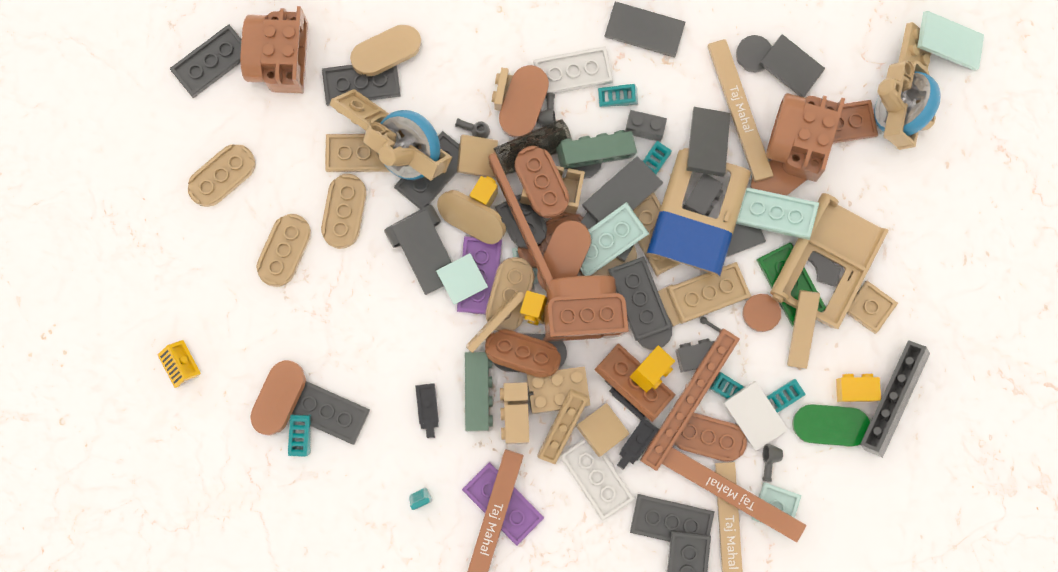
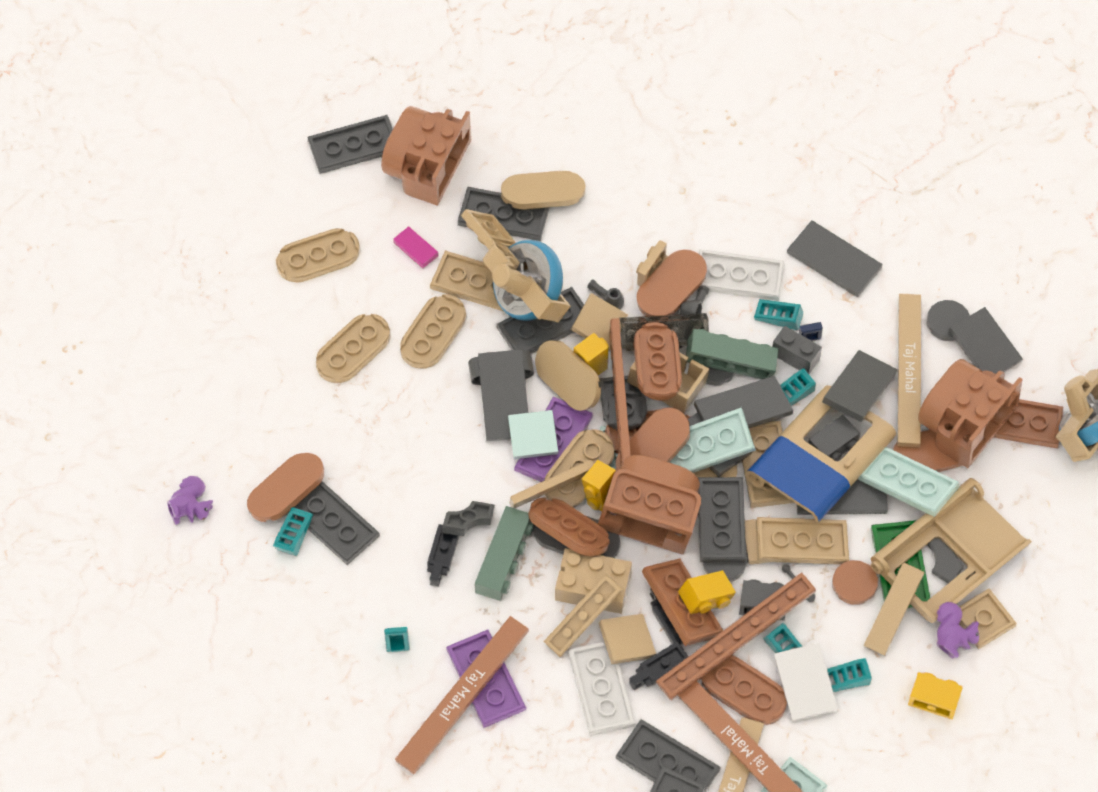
camera: 25 degrees right, 20 degrees down
(178, 363) = (194, 418): yellow panel -> none
(199, 440) = (185, 503): none -> medium lavender animal
(300, 139) = (415, 247): none -> dark pink tile
(431, 379) = (461, 521): none -> dark grey tile
(515, 413) = (536, 584): tan piece -> none
(650, 105) = (811, 331): none -> dark blue tile
(770, 455) = (810, 731): dark grey bar -> none
(830, 425) = (890, 725): green tile -> none
(854, 333) = (951, 634): none -> medium lavender animal
(895, 398) = (973, 716): dark grey brick -> none

